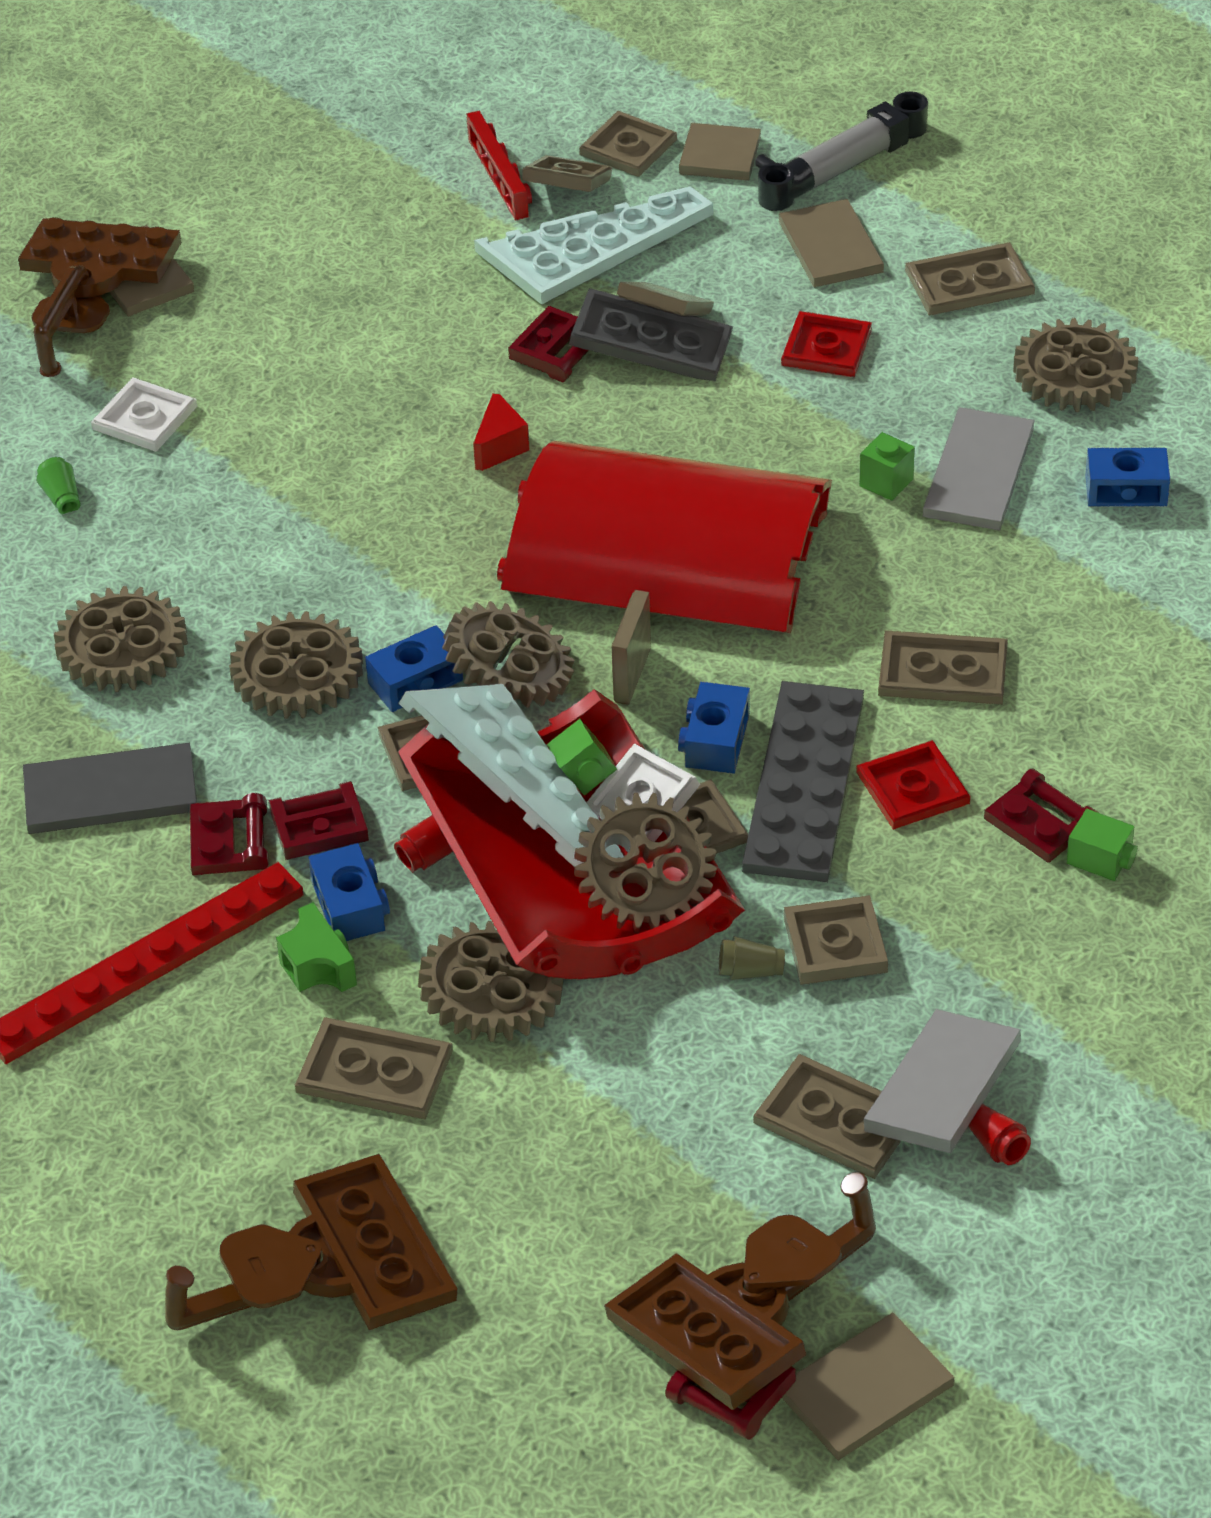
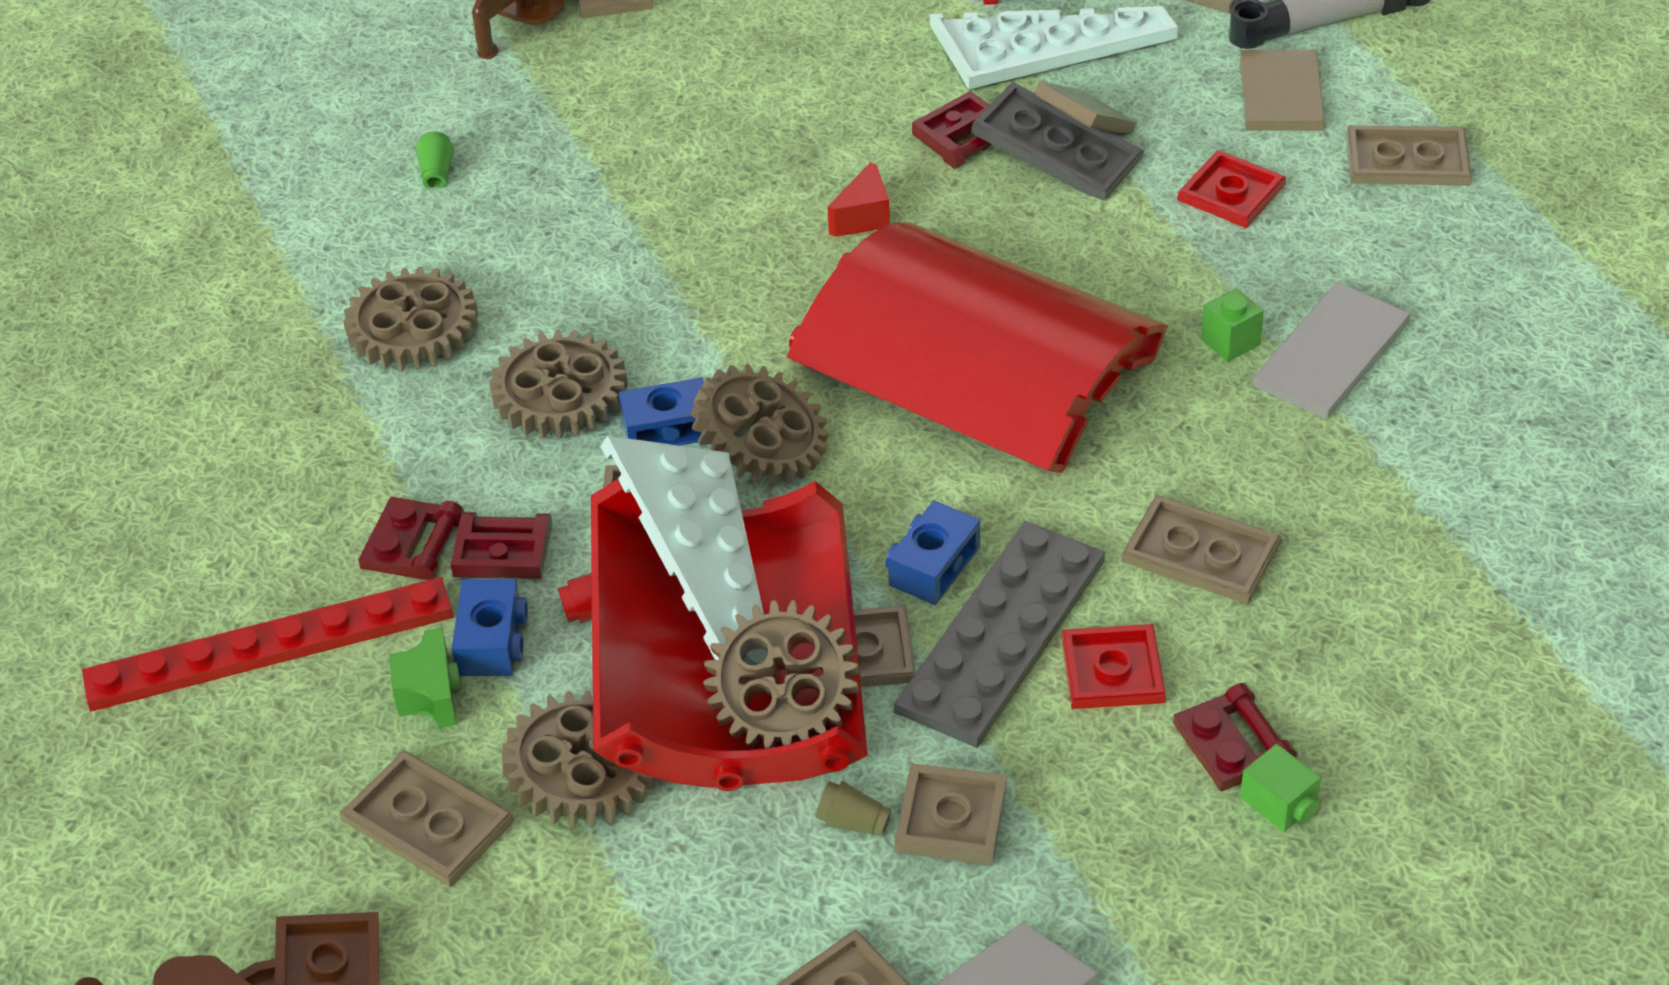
camera: 20 degrees right, 0 degrees up
(109, 788) = (328, 461): dark grey tile -> none
(144, 414) = (547, 111): white tile -> none
(582, 757) = (775, 548): bright green brick -> none
(631, 647) = (880, 447): dark tan tile -> none
(644, 774) = (830, 589): white tile -> none
(1075, 365) = (1478, 266): dark tan gear -> none
(1127, 477) = (1482, 395): blue brick -> none

